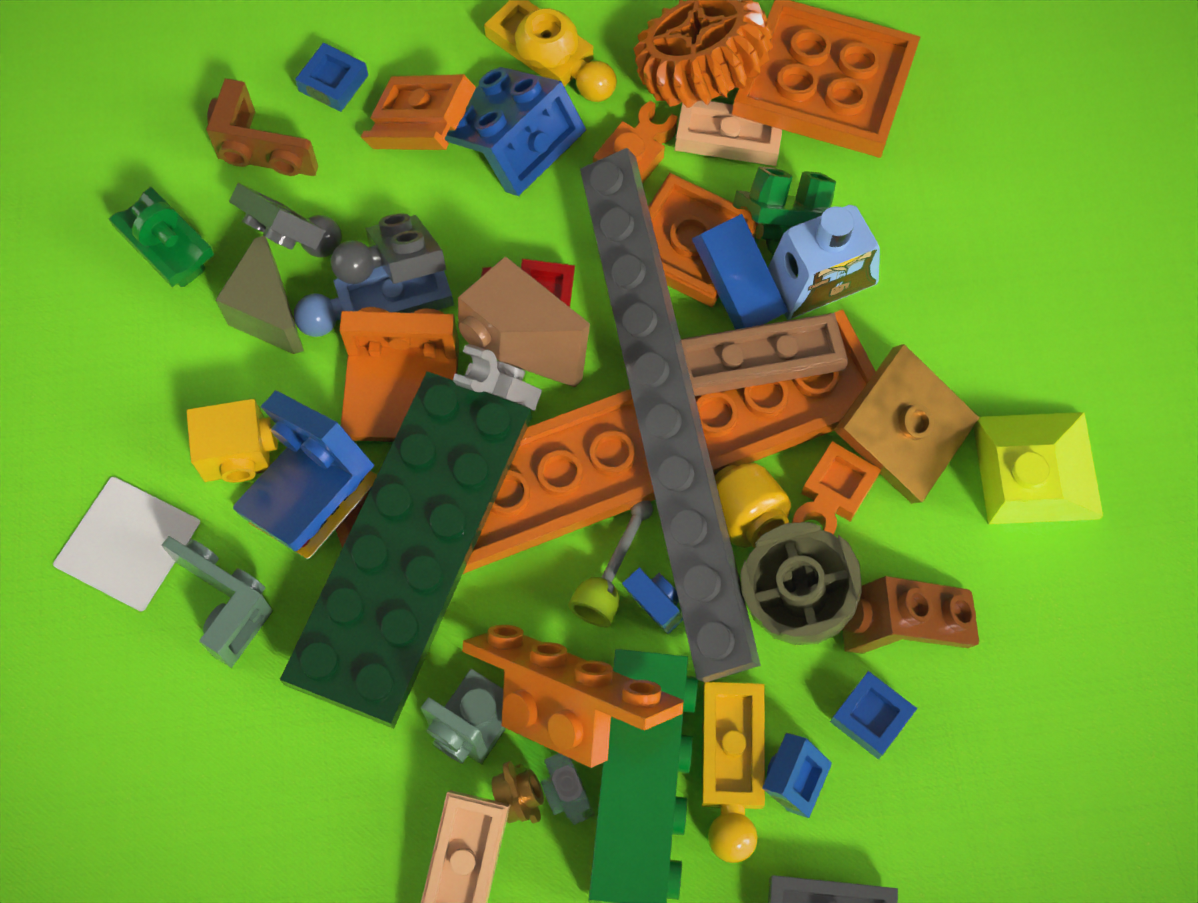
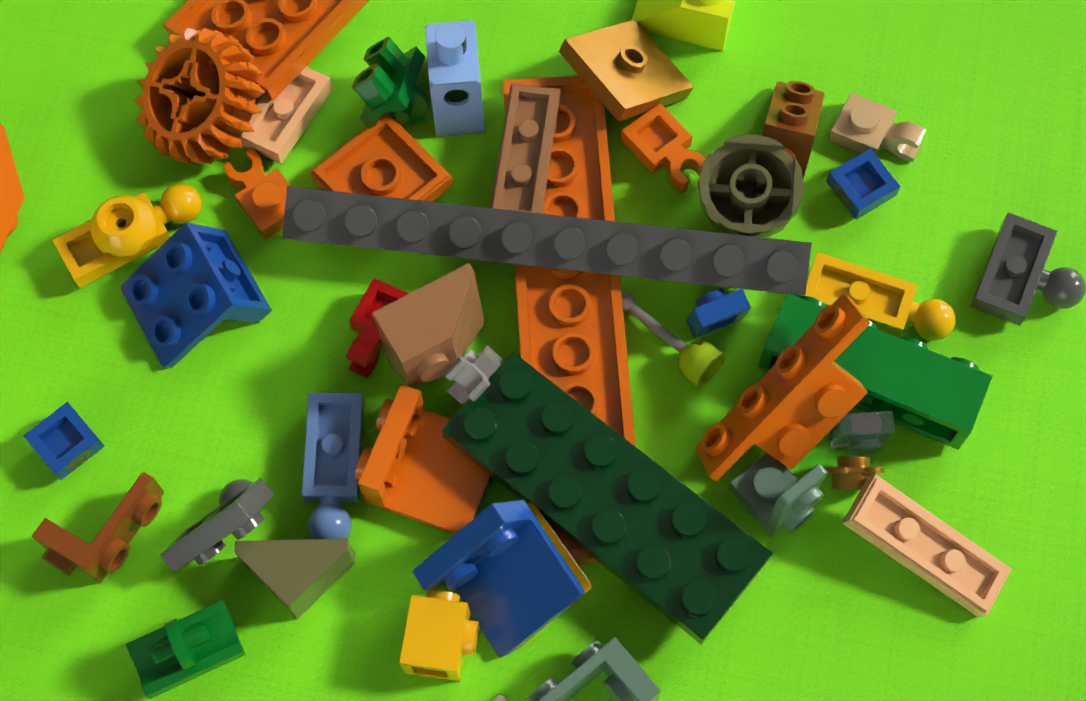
camera: 70 degrees left, 0 degrees up
(396, 244) = (293, 422): dark grey plate -> none
(419, 112) = (150, 365): orange plate -> none
(740, 274) = (439, 146): blue tile -> none
(751, 502) = (657, 204): yellow head -> none
(796, 775) = (896, 255): blue plate -> none
(953, 705) = (872, 126): none -> tan plate

